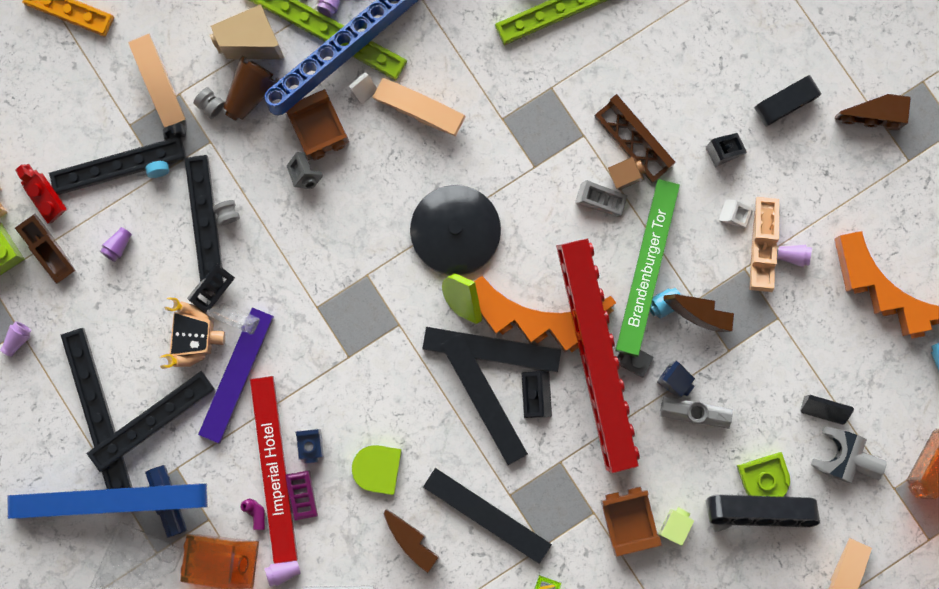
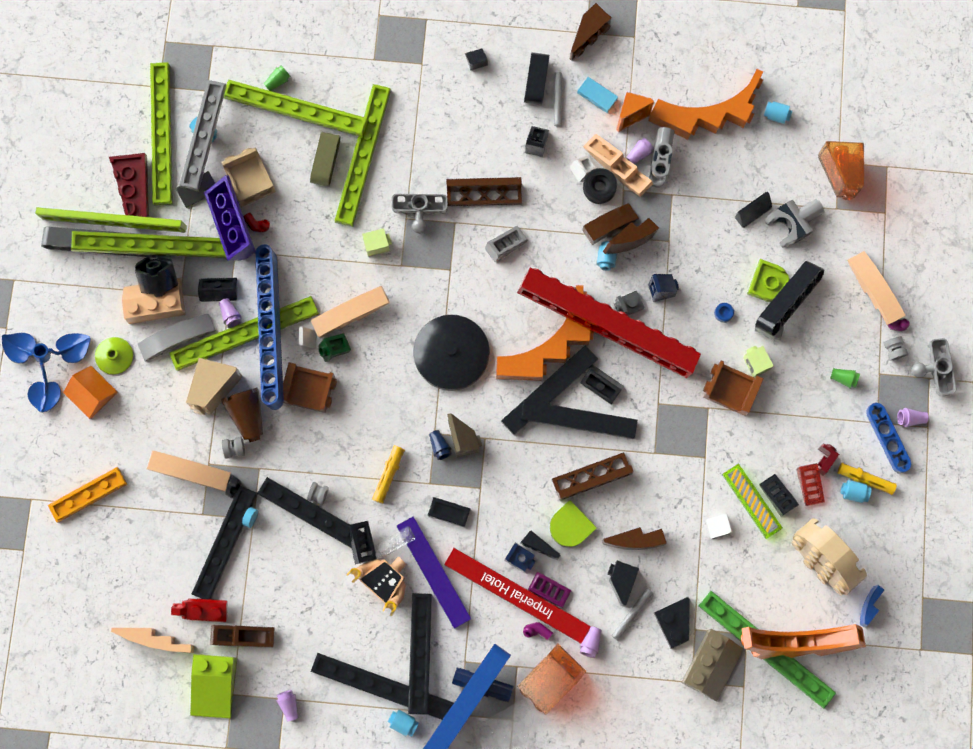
camera: 55 degrees left, 5 degrees down
(76, 455) = (403, 723): none -> medium azure brick
(116, 244) = (279, 586): medium lavender cone -> none
(295, 262) = (390, 469): none -> yellow pin
(301, 173) = (331, 422): dark grey bracket -> none
(303, 345) = (449, 512): none -> black tile
(334, 447) = (537, 544): none -> black slope
(357, 288) = (440, 447): none -> dark blue cone
(362, 557) = (622, 580): none -> black slope
(374, 118) = (333, 346): none -> dark green bracket
(380, 303) = (463, 437): none -> dark tan slope
(435, 460) = (596, 481): none -> reddish brown fence
(462, 297) = (501, 380): lime tile -> none
(487, 515) = (657, 477): black tile -> none
(504, 78) = (376, 242): none -> yellowish green brick
(579, 100) = (409, 207): none -> light grey piece
(627, 173) = (503, 213): medium nougat brick -> none
(647, 268) = (576, 248): bright green tile -> none
(700, 281) = (609, 223): none -> reddish brown slope
(700, 457) = (724, 312): none -> blue tile
(710, 415) = (701, 284): light grey piece -> none
(738, 233) = (599, 175): none -> black tyre
(761, 29) = (476, 59): none -> black slope
(786, 135) = (558, 100): none -> light grey bar
(815, 274) = (662, 155): none -> light grey connector
(820, 170) = (597, 94): none -> medium azure tile
(830, 216) = (634, 110): none -> orange slope

